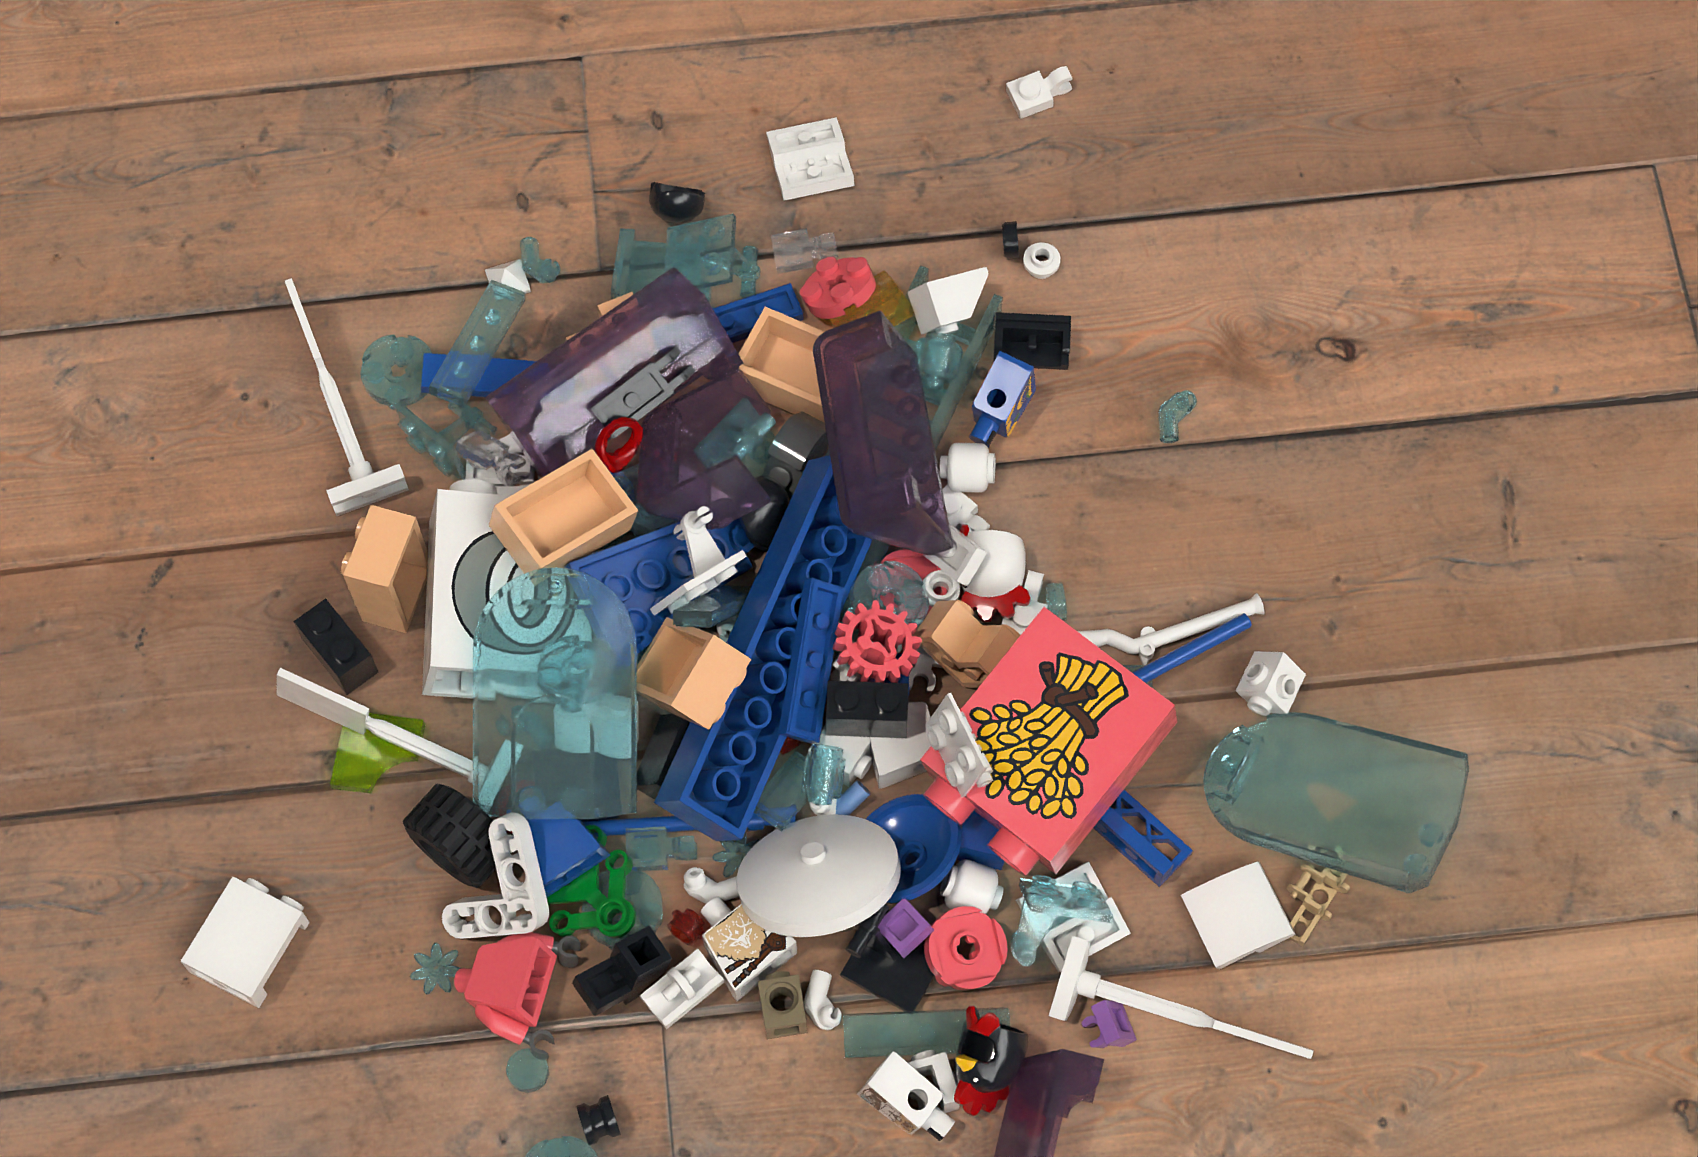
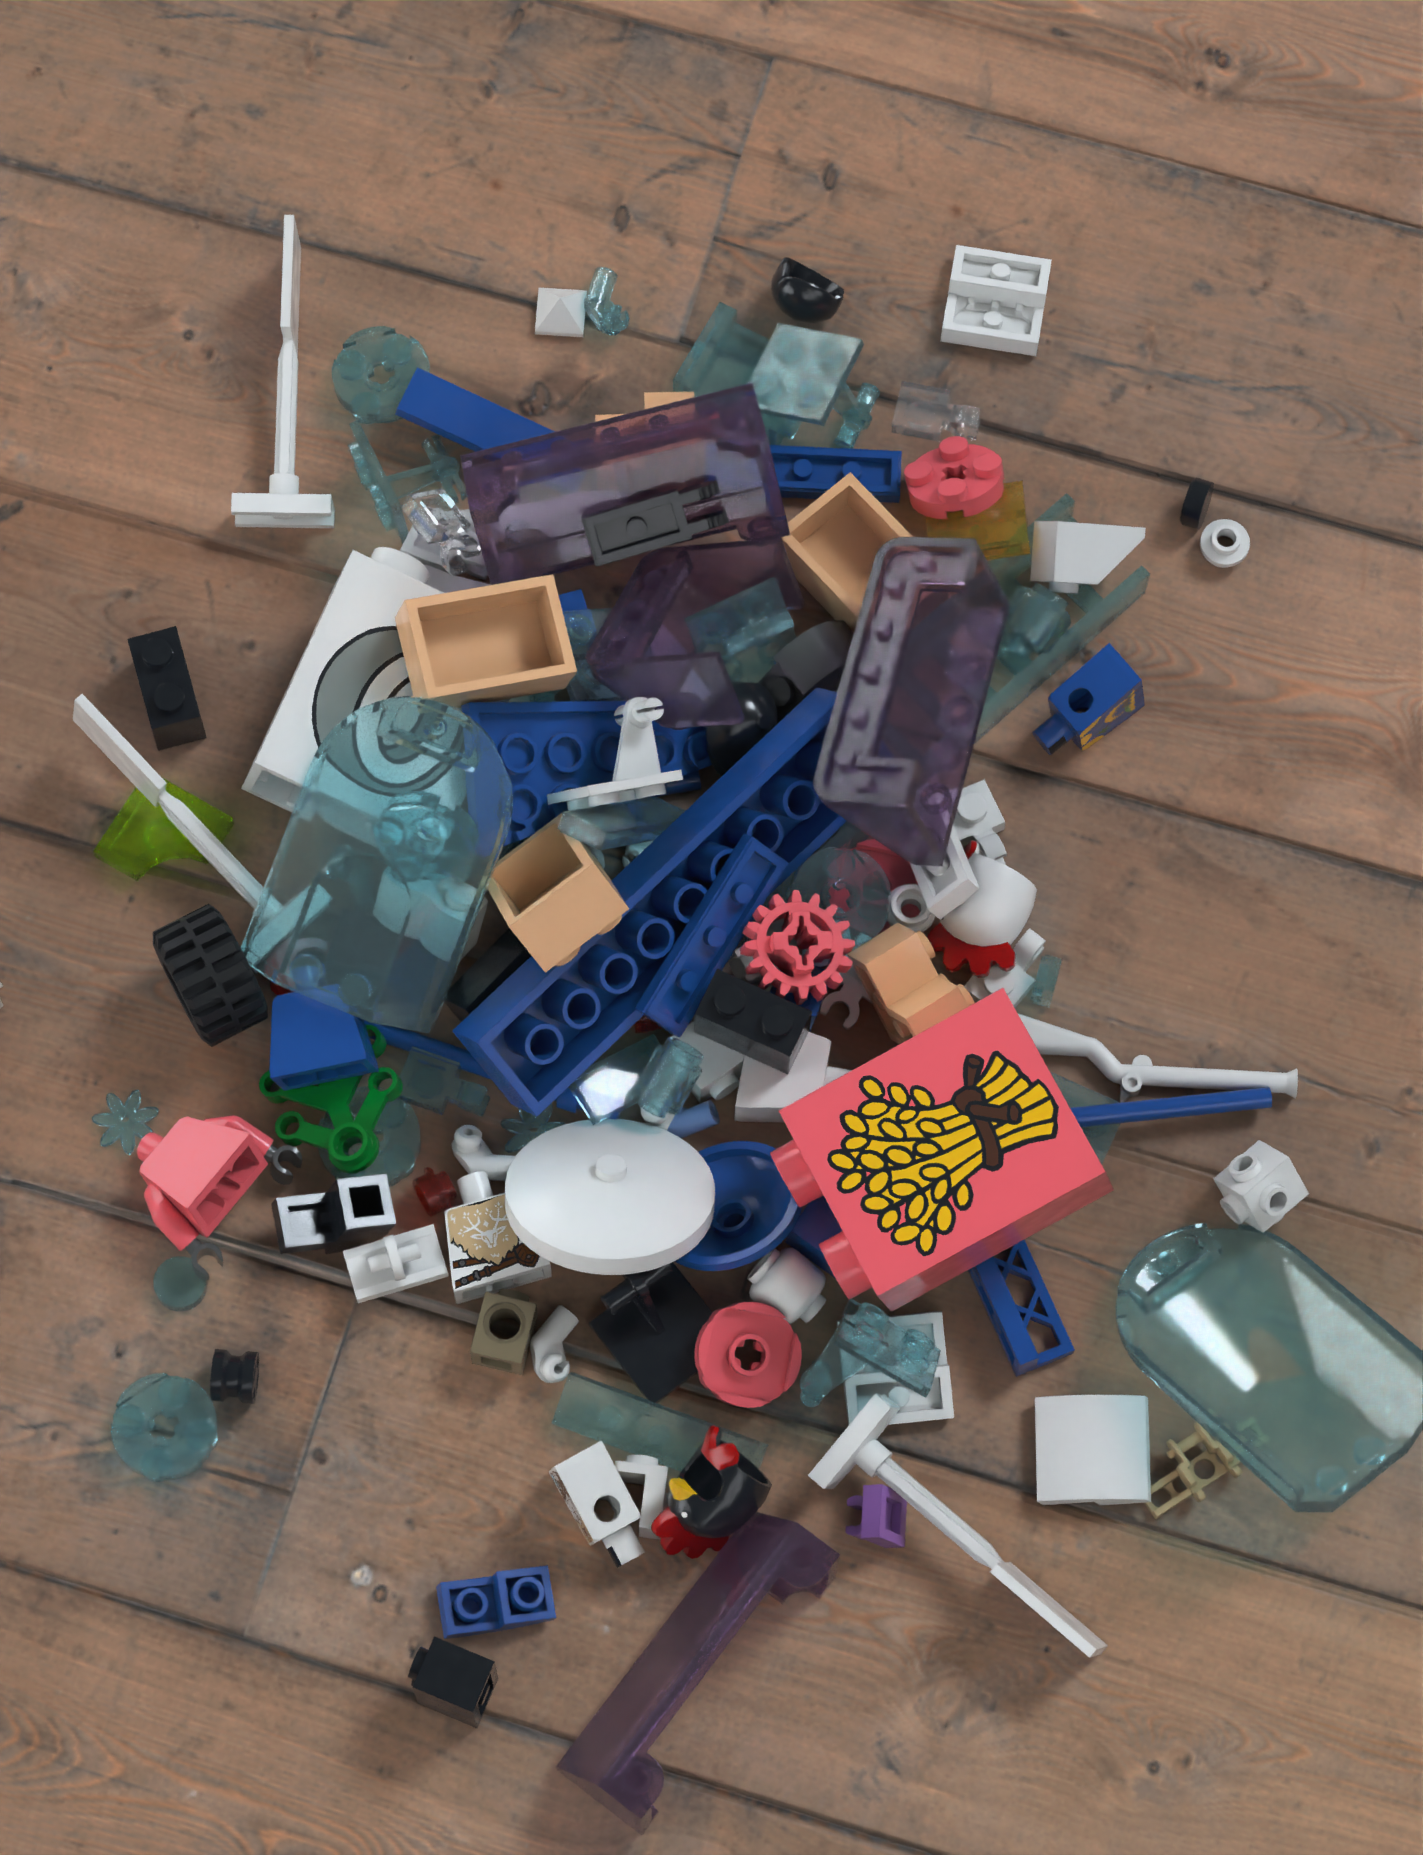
camera: 20 degrees right, 5 degrees up
(386, 568) = (260, 619): light nougat piece -> none
(477, 343) = (486, 380): clear light blue tile -> none
(514, 894) = (244, 1072): white beam -> none
(622, 456) = (591, 594): red piece -> none
(904, 927) = (683, 1300): medium lavender tile -> none
(952, 737) = (823, 1095): white hinge -> none
(968, 467) = (1014, 771): white head -> none
(1034, 339) = (1166, 642): black hinge -> none
(1035, 94) = (1312, 323): white plate -> none
(1172, 412) = (1300, 801): clear light blue arm -> none

